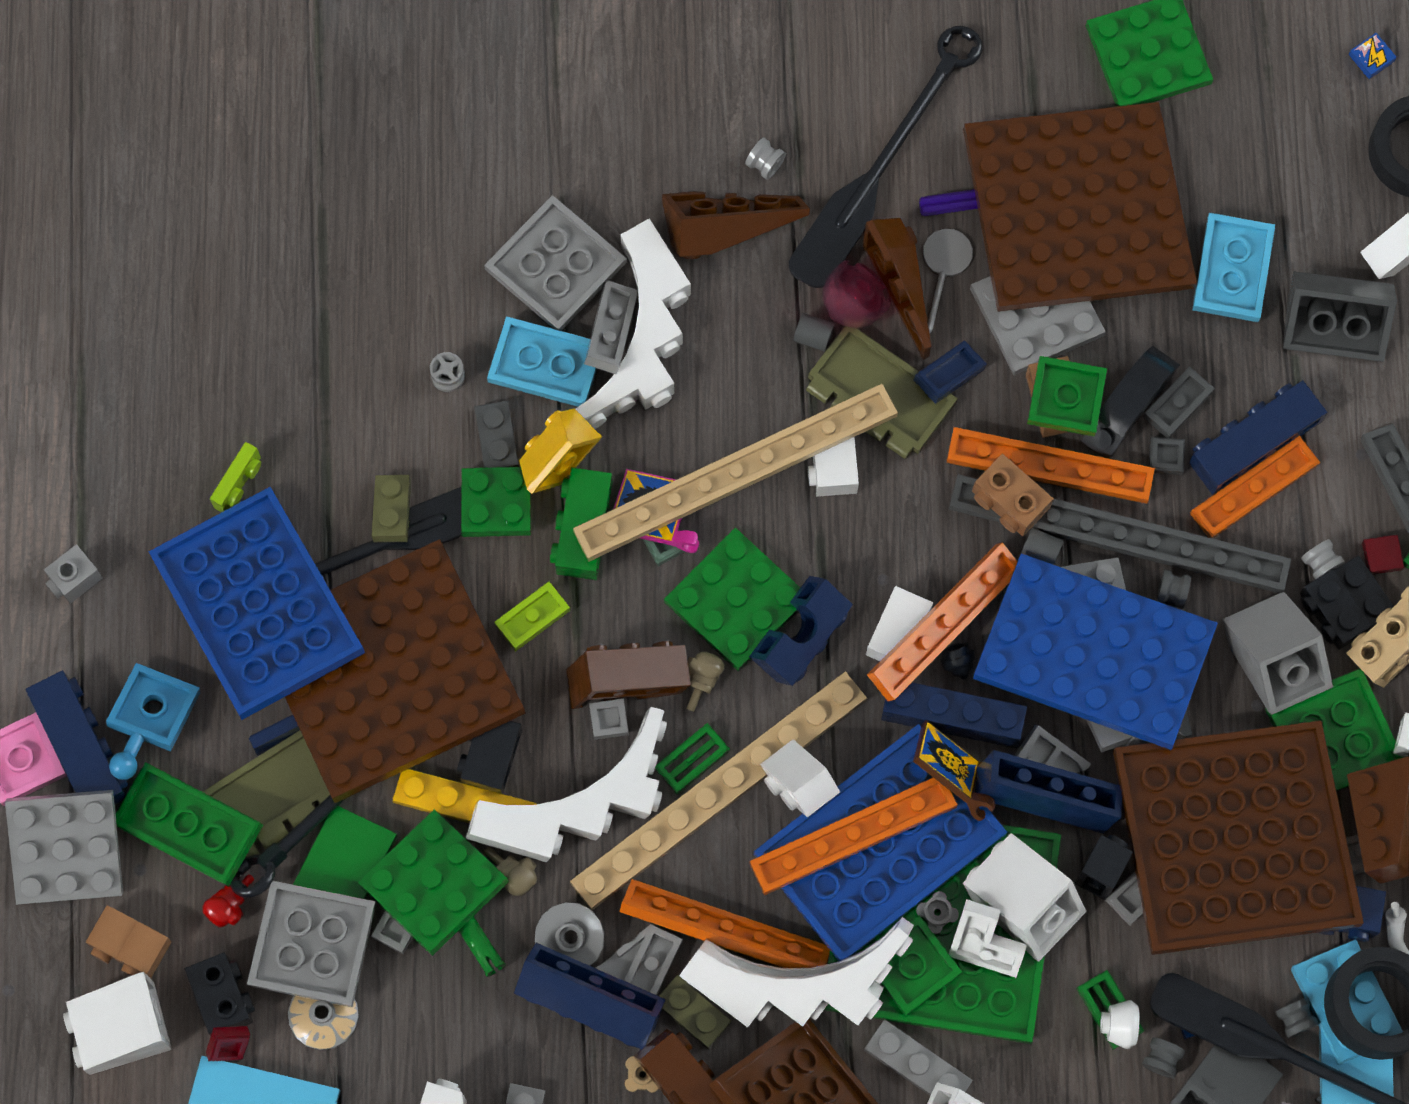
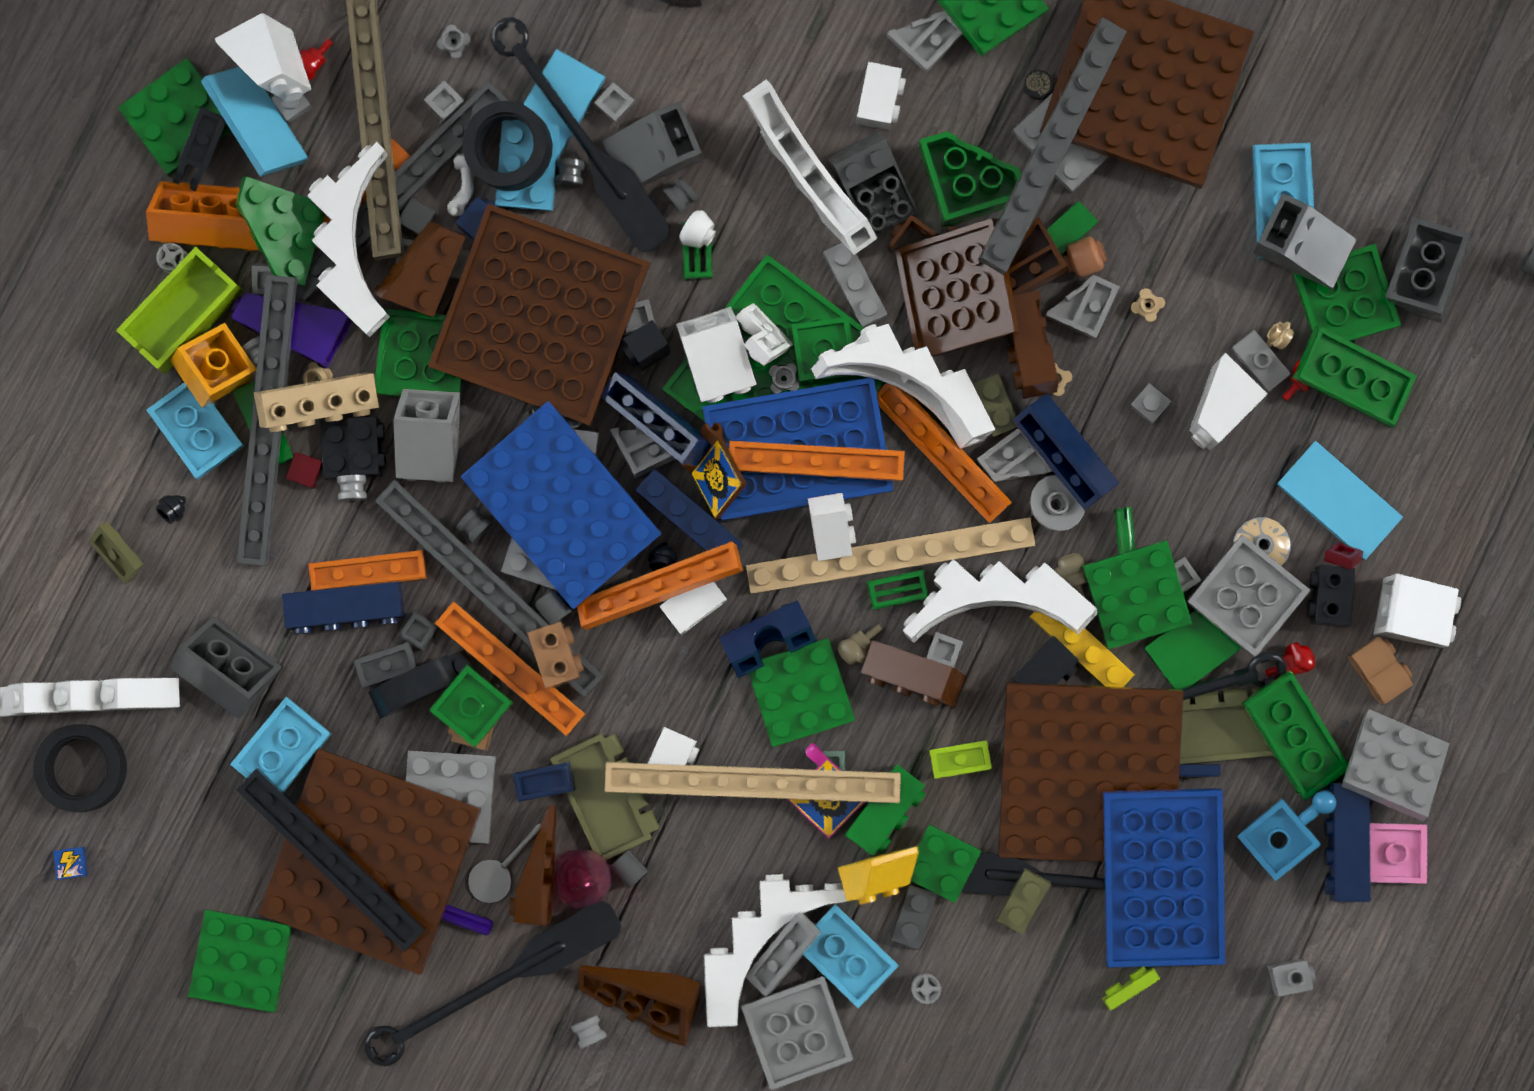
camera: 145 degrees left, 10 degrees up
(1118, 181) = (331, 859): none -> black plate

